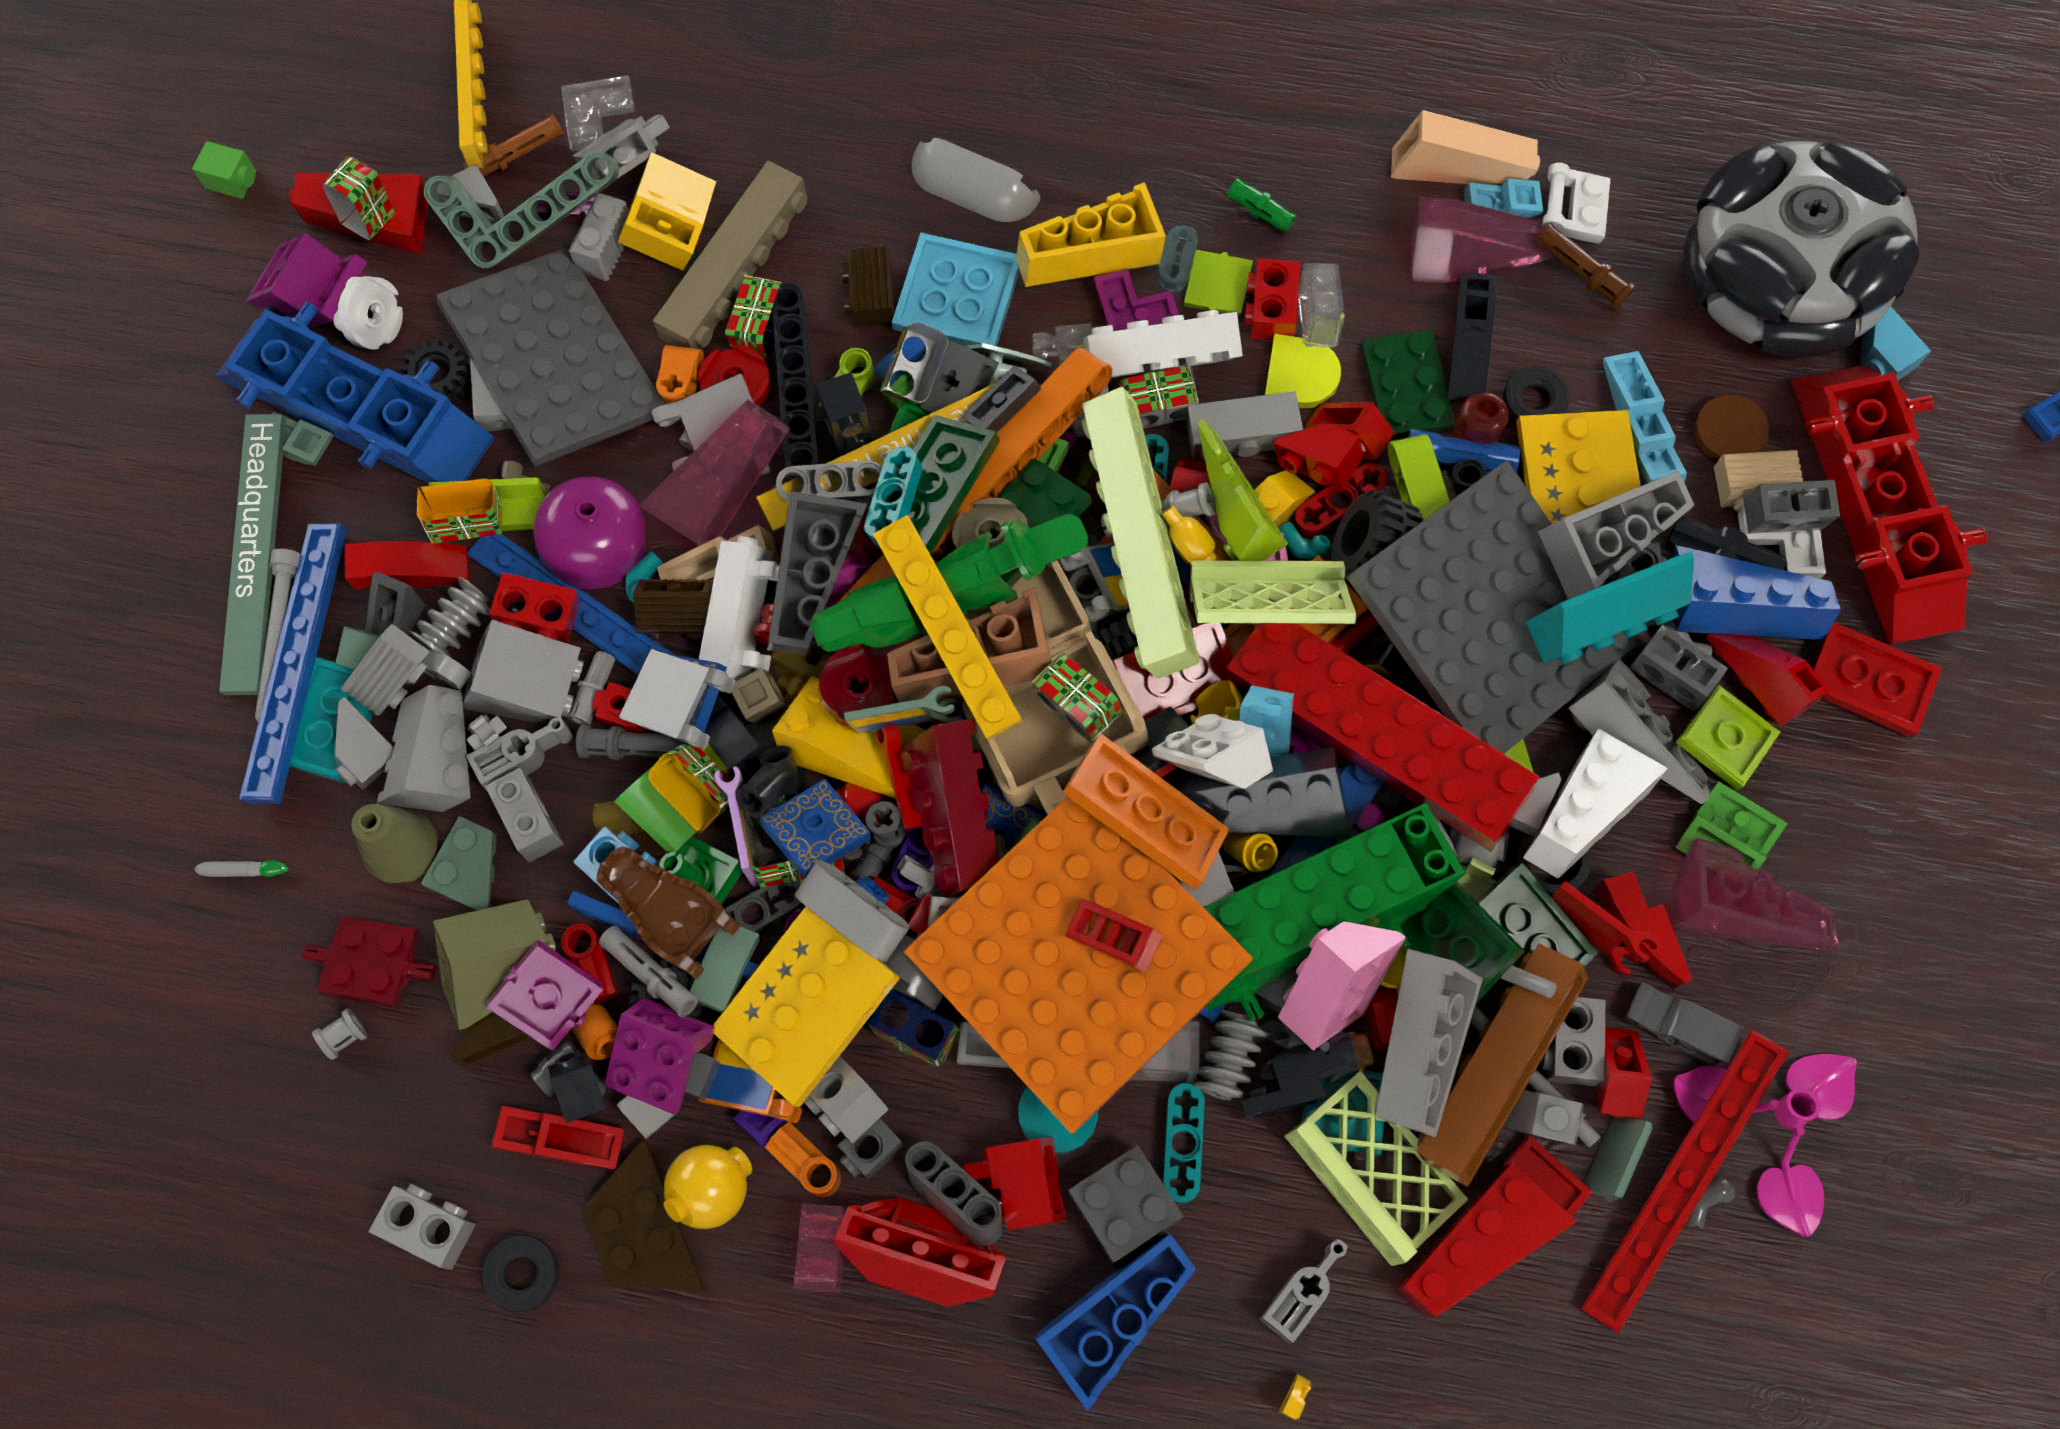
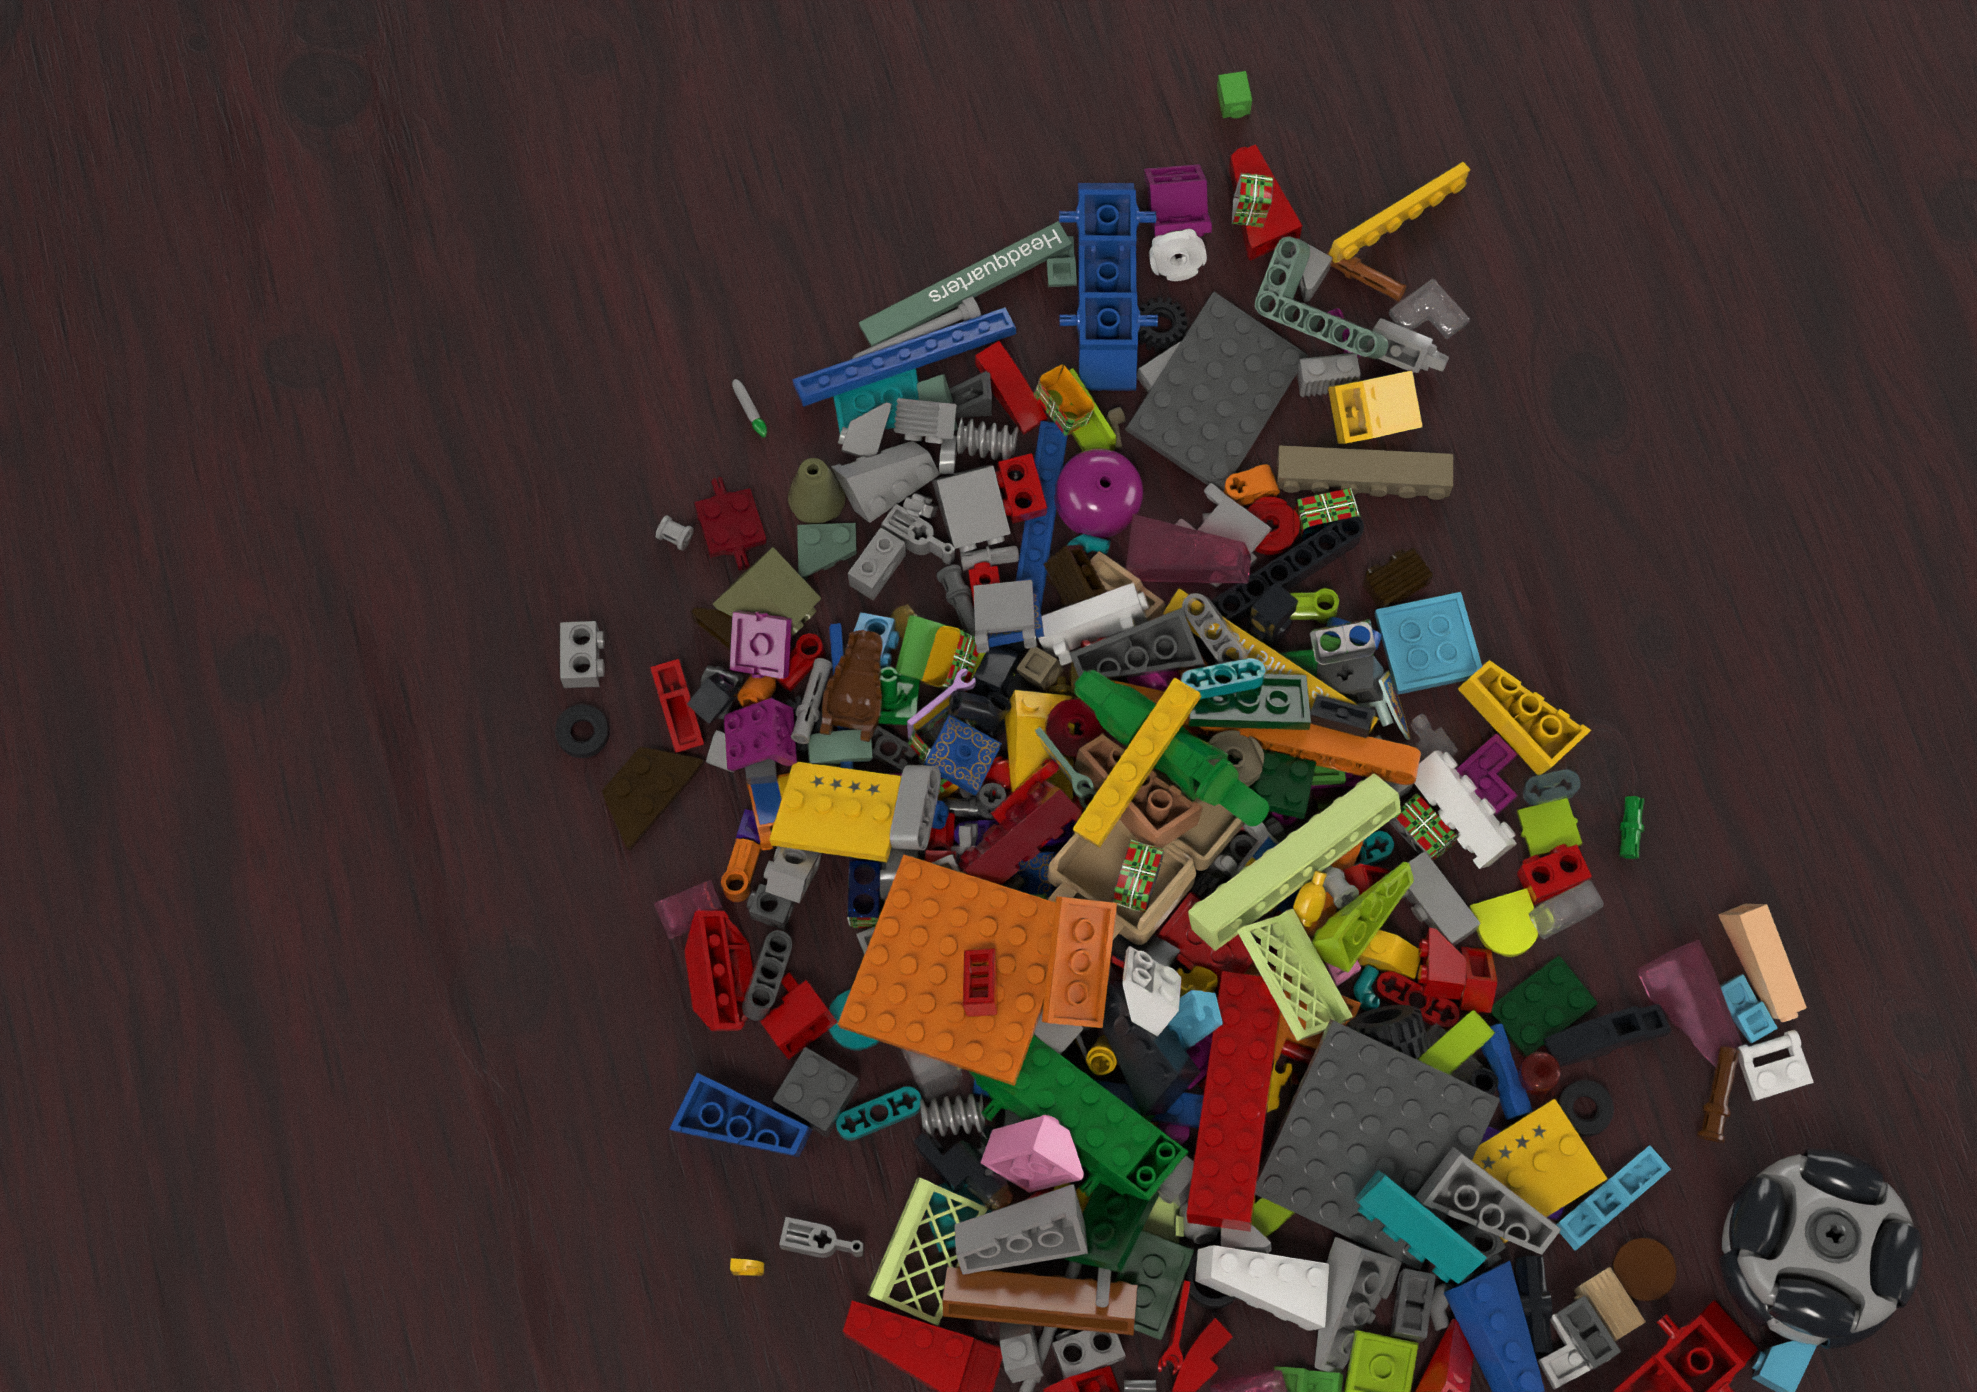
camera: 60 degrees right, 0 degrees up
(706, 1186) = (692, 814): yellow brick -> none
(972, 181) = (1527, 607): light grey brick -> none

